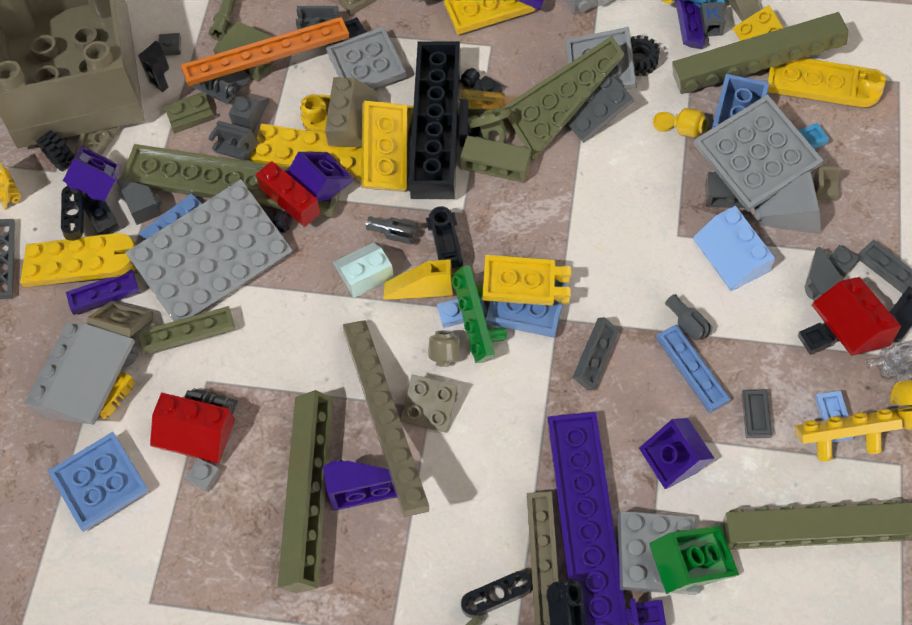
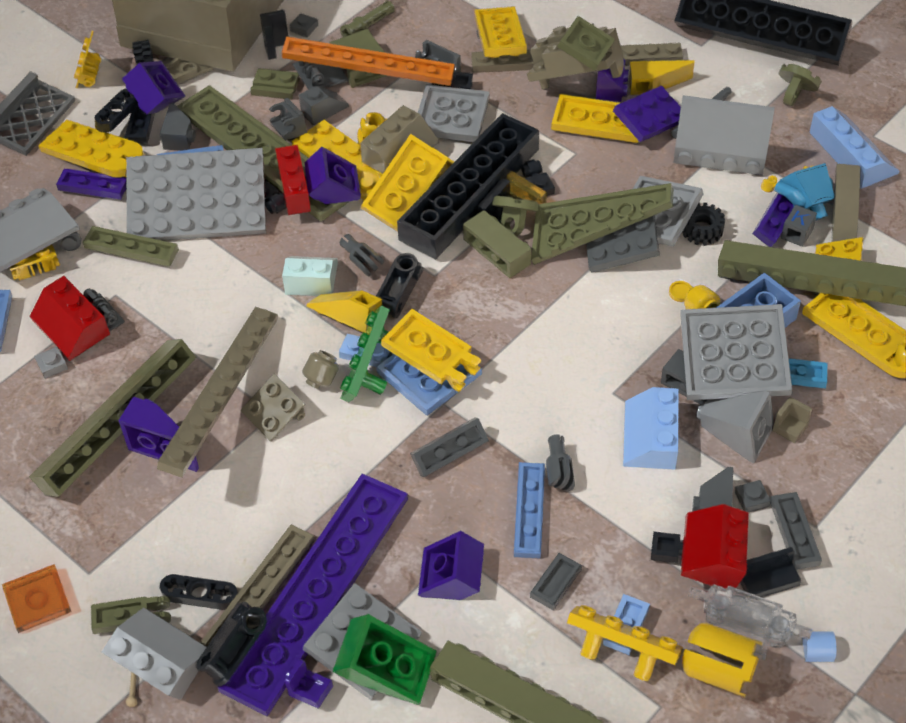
camera: 30 degrees right, 10 degrees down
(120, 318) = (86, 208): dark tan plate -> none

